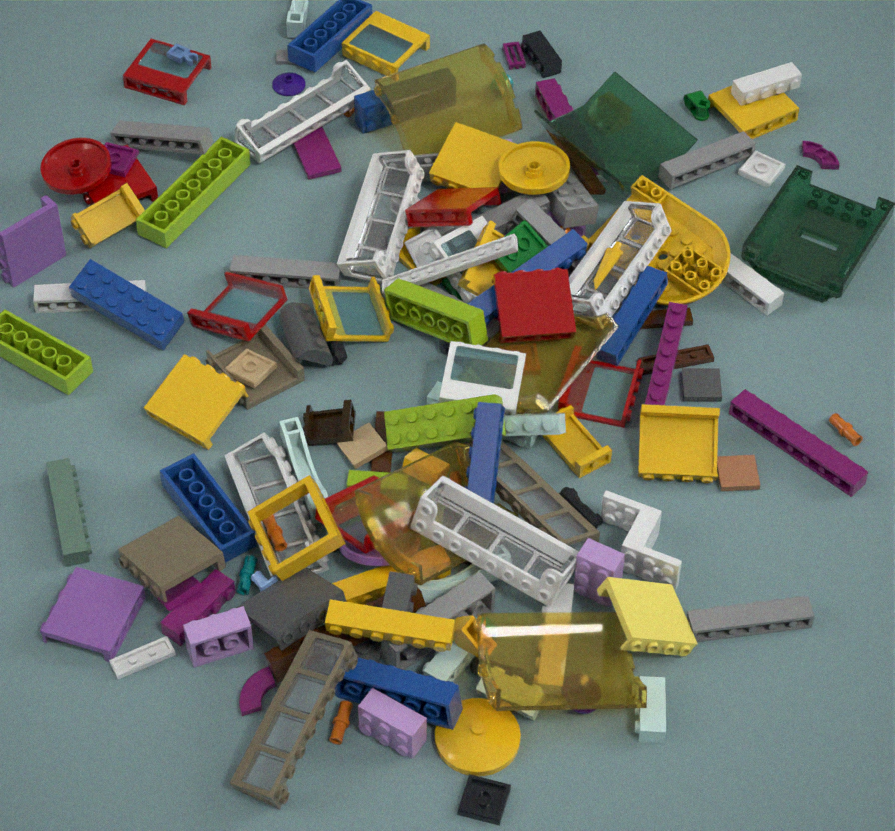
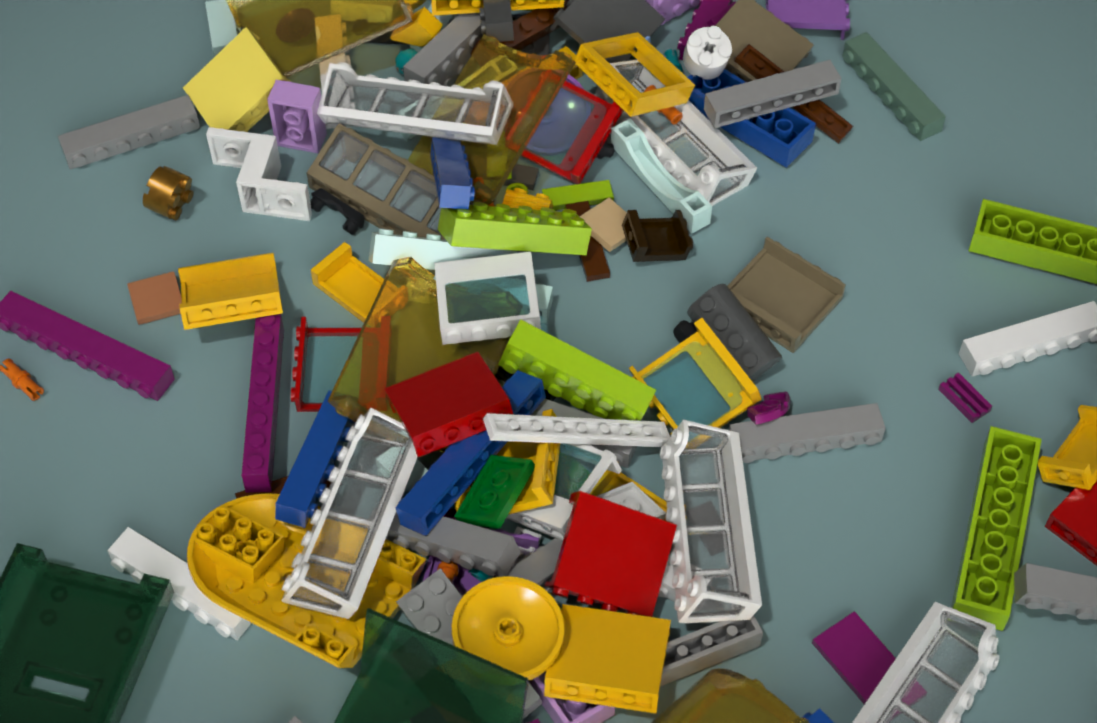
camera: 165 degrees right, 5 degrees up
(126, 304) = (975, 312): blue brick -> none
(158, 267) = (968, 394): none -> magenta tile
(160, 512) = (817, 111): none -> reddish brown tile
(185, 491) = (772, 93): none -> light grey brick
(194, 400) = (821, 219): yellow panel -> none
(224, 530) = (707, 52): none -> white brick
(240, 307) = (837, 351): panel -> none
(250, 368) = (783, 287): tan tile -> none
(299, 288) = (771, 408): none -> magenta tile
(609, 260) = (363, 515): yellow bar -> none
(685, 358) = (232, 443): reddish brown tile -> none
(701, 384) = (213, 405): dark grey tile -> none
(720, 542) = (168, 192): none -> pearl gold brick

